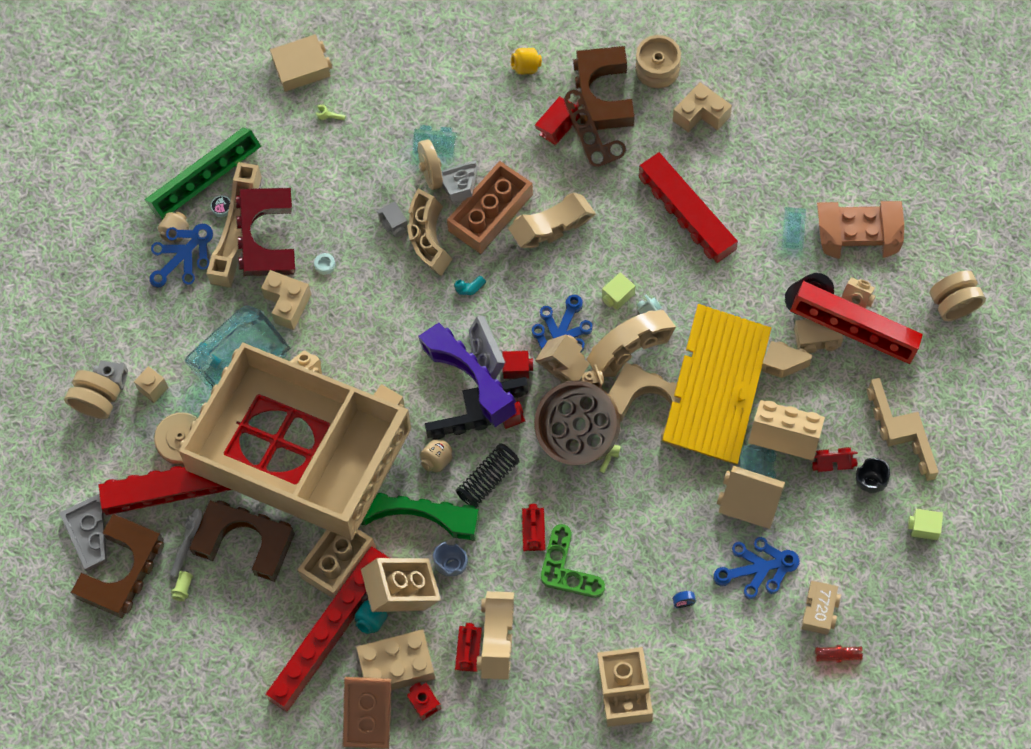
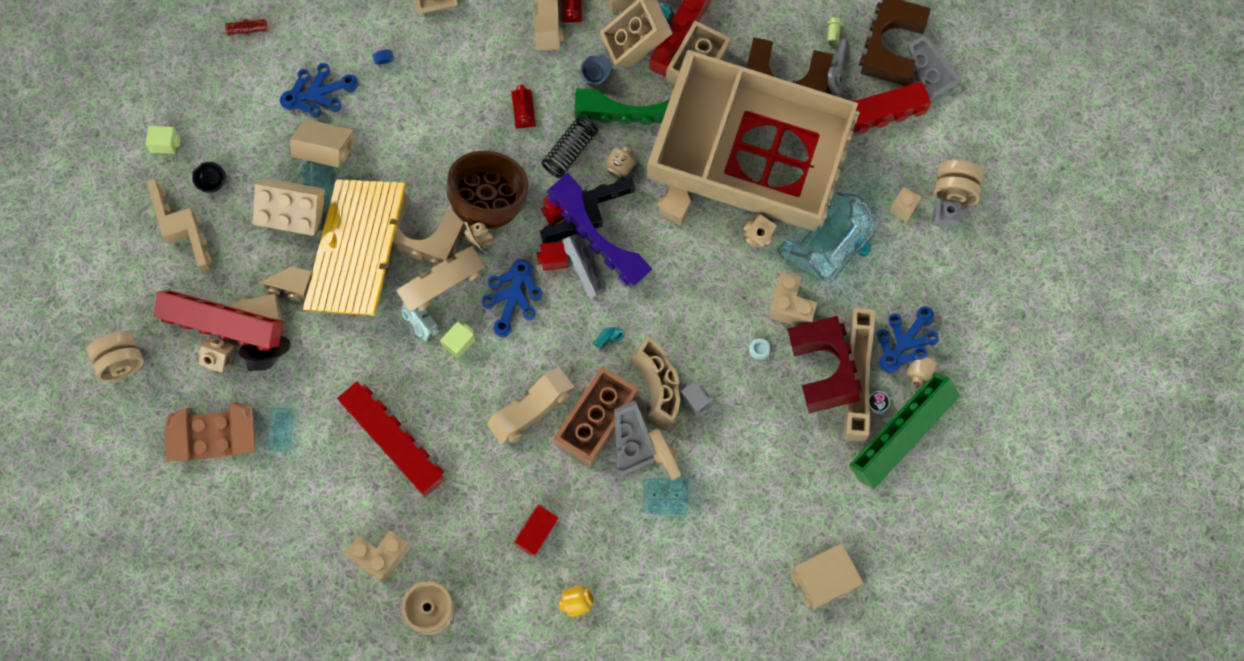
camera: 170 degrees right, 5 degrees up
(170, 434) = (866, 158): tan wheel -> none
(326, 114) = (784, 520): yellowish green hand -> none
(563, 358) = (507, 254): tan brick -> none
(563, 574) = (493, 72): bright green beam -> none
(589, 127) = (488, 490): reddish brown beam -> none
(592, 65) = (504, 600): reddish brown arch -> none
(819, 615) = (261, 55): tan brick -> none
(843, 458) = (239, 196): red hinge -> none

